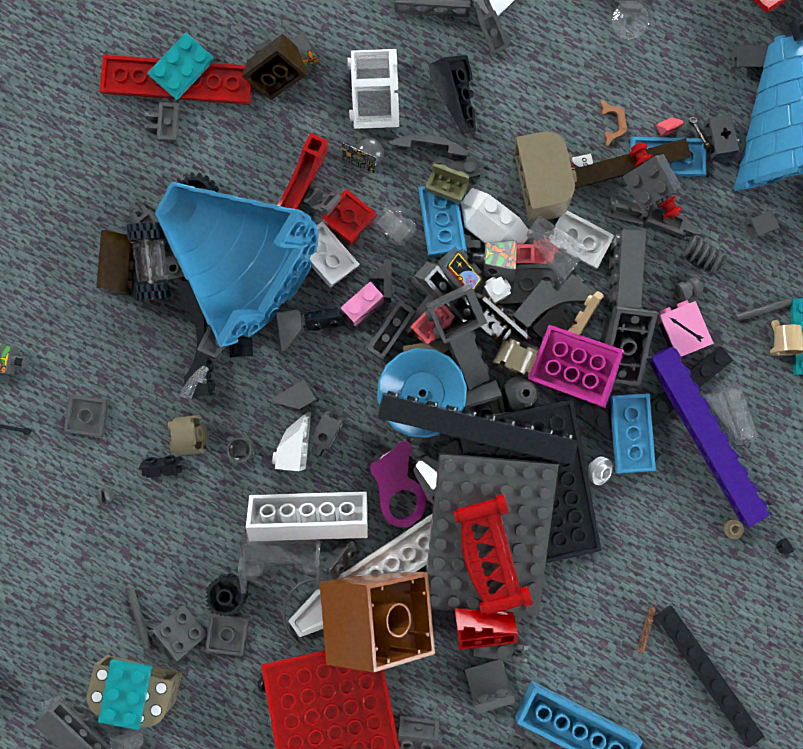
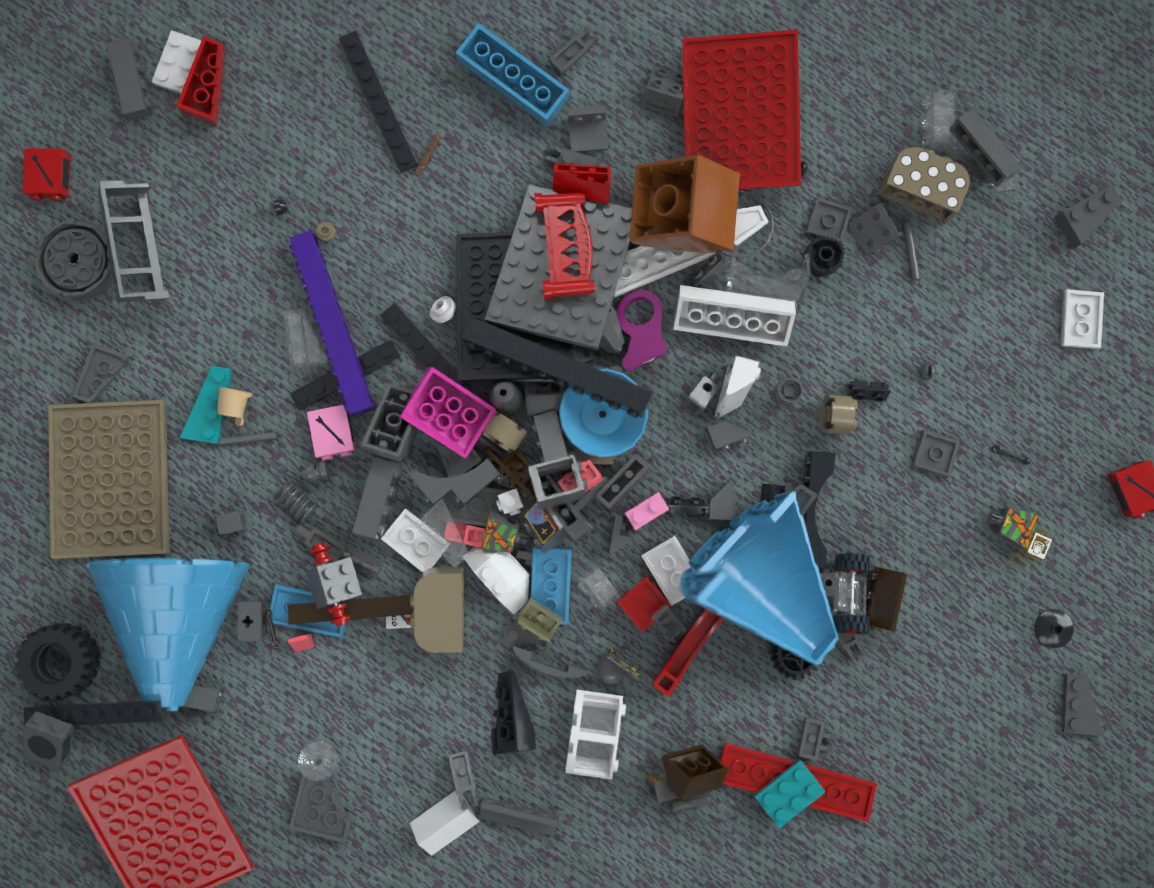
camera: 170 degrees left, 0 degrees up
(125, 694) = (932, 180): teal plate -> none
(190, 386) = (819, 467): clear slope -> none
(583, 317) = (430, 458): tan hinge -> none
(621, 121) = (348, 657): nougat helmet -> none
(632, 433) = (404, 339): dark azure tile -> none

